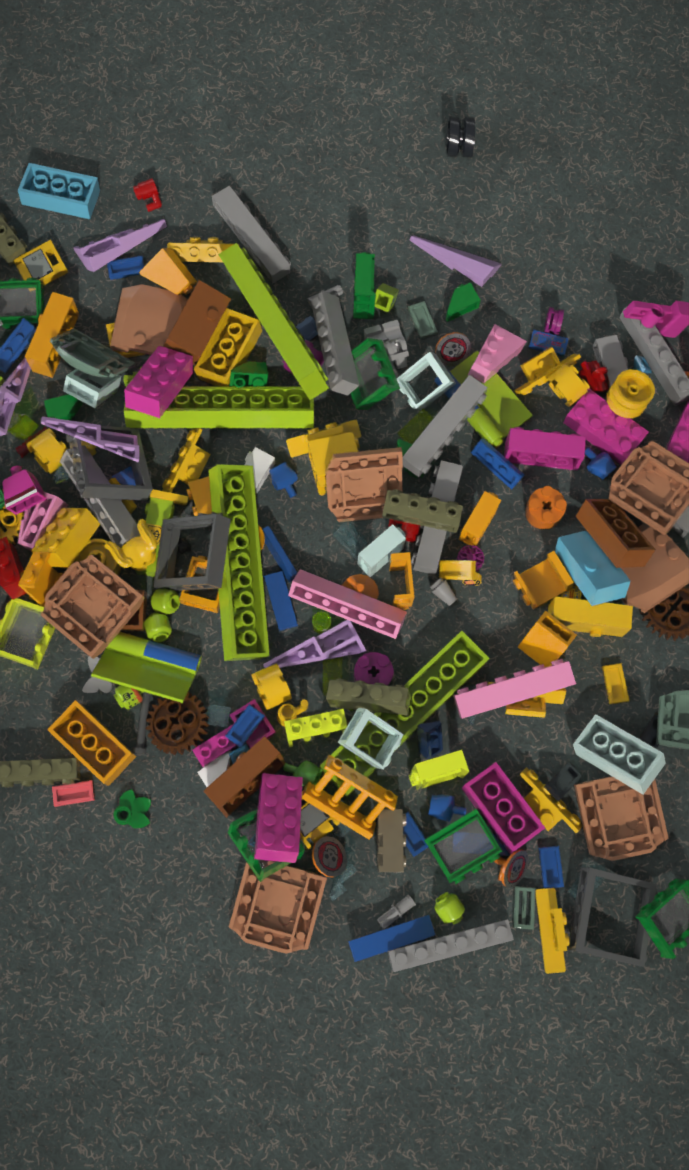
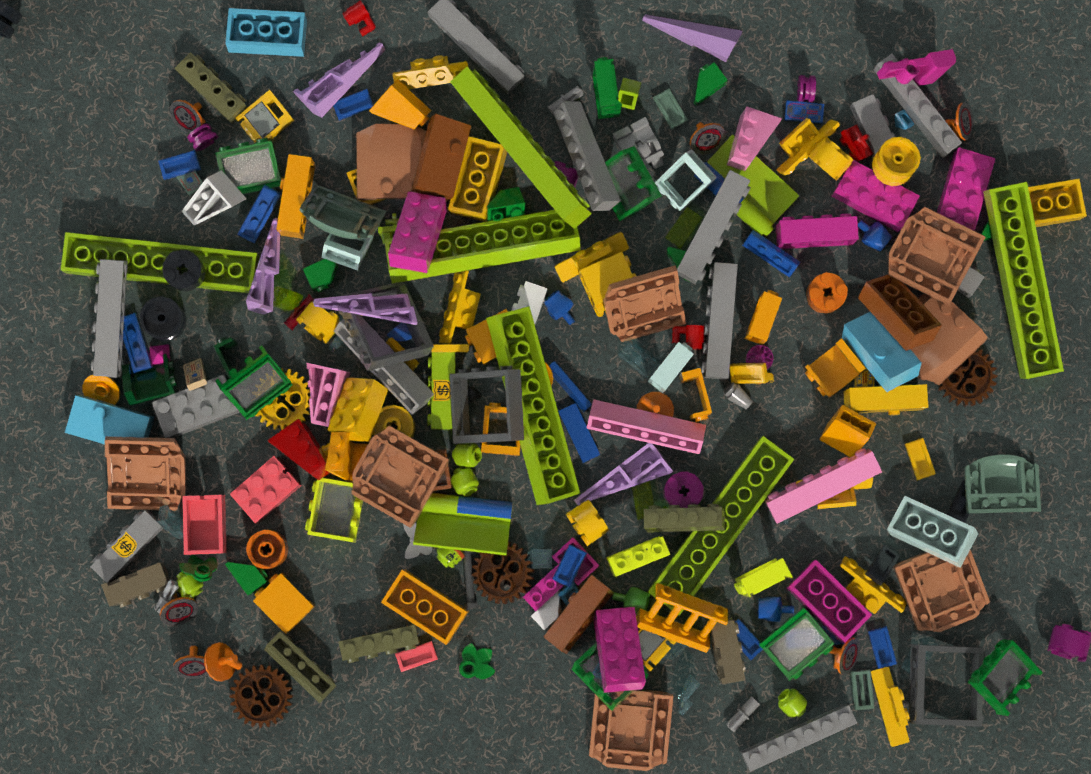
camera: 10 degrees left, 10 degrees up
(22, 490) = (304, 369): dark pink torso -> none
(138, 551) = (431, 413): yellow hair -> none
(289, 712) = (607, 545): yellow piece -> none
(308, 328) = (554, 141): medium blue tile -> none
(321, 626) = (621, 451): clear neon green wheel -> none
(329, 856) = (672, 675): shield -> none
(355, 728) = (678, 553): light aqua window -> none
(391, 938) = (742, 739): blue slope -> none
(422, 510) = (705, 321): olive brick -> none
(430, 739) = (748, 547): dark blue slope -> none

